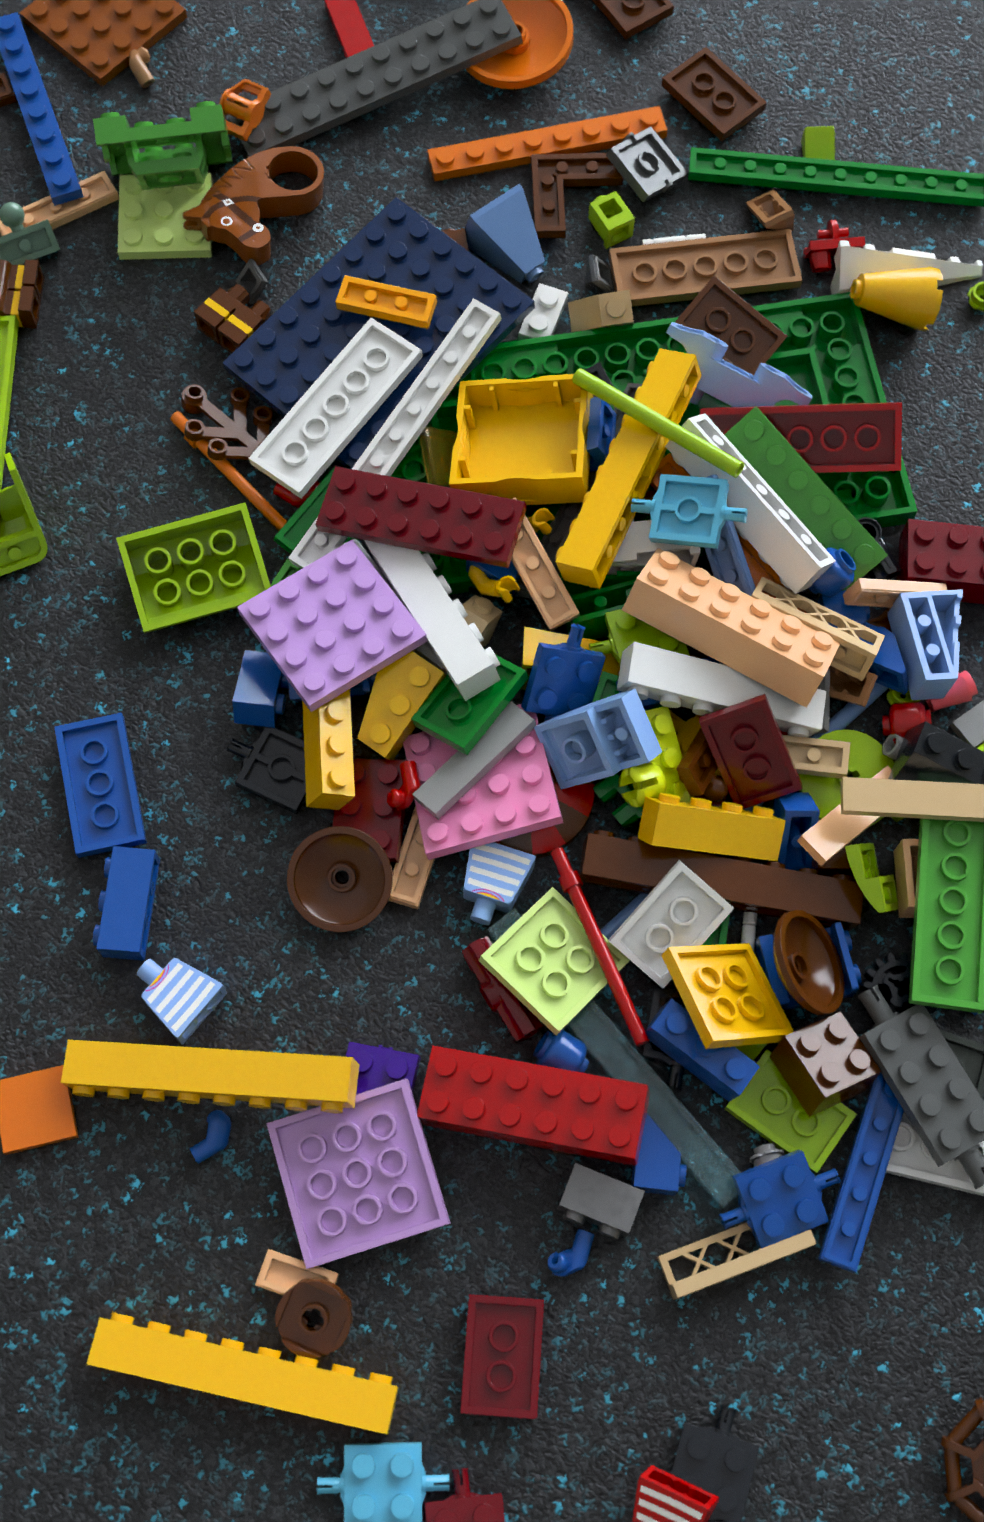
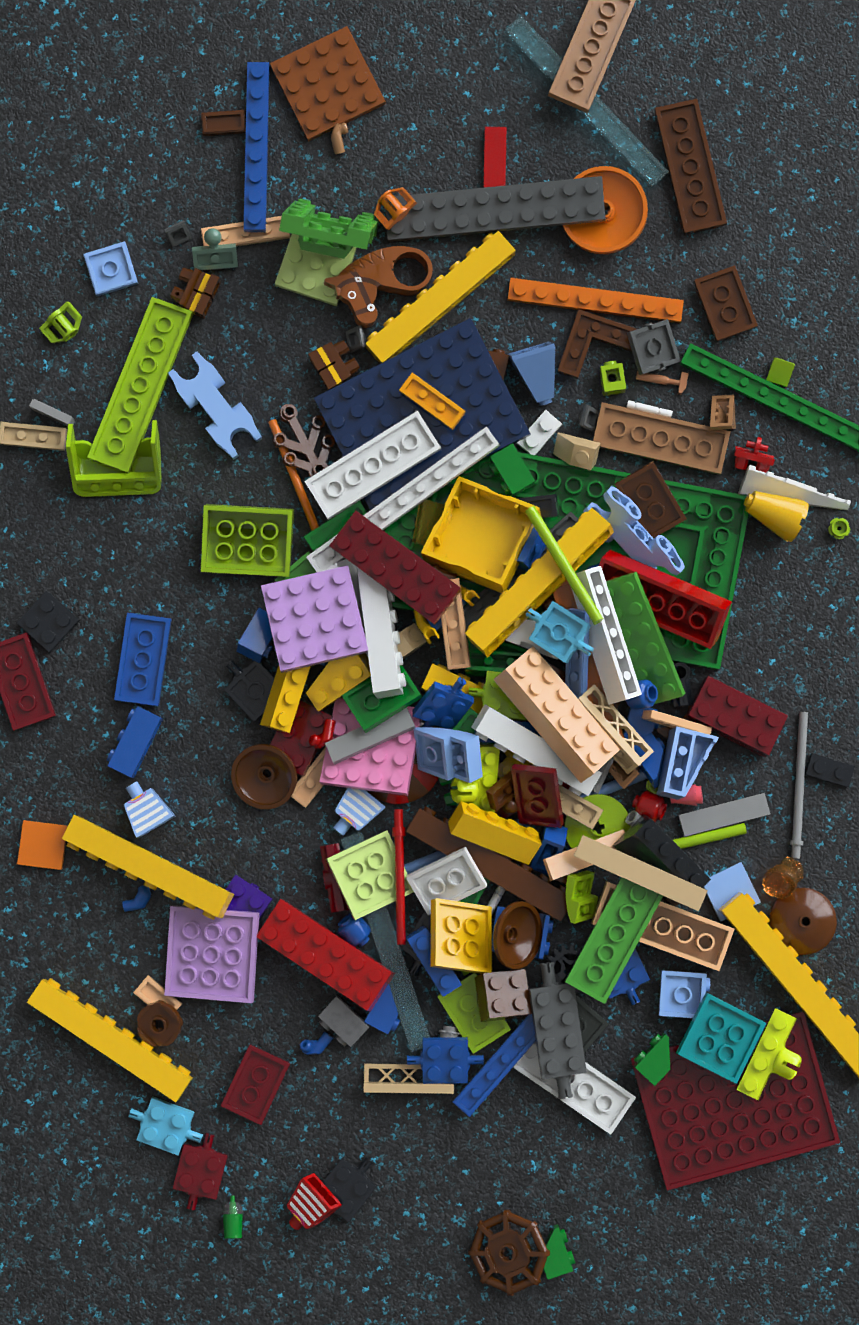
camera: 25 degrees right, 15 degrees up
(108, 433) = (226, 420): none -> light blue piece
(346, 197) = (440, 298): none -> yellow brick
(527, 353) = (511, 470): none -> green brick
(678, 203) = (659, 379): none -> nougat piece

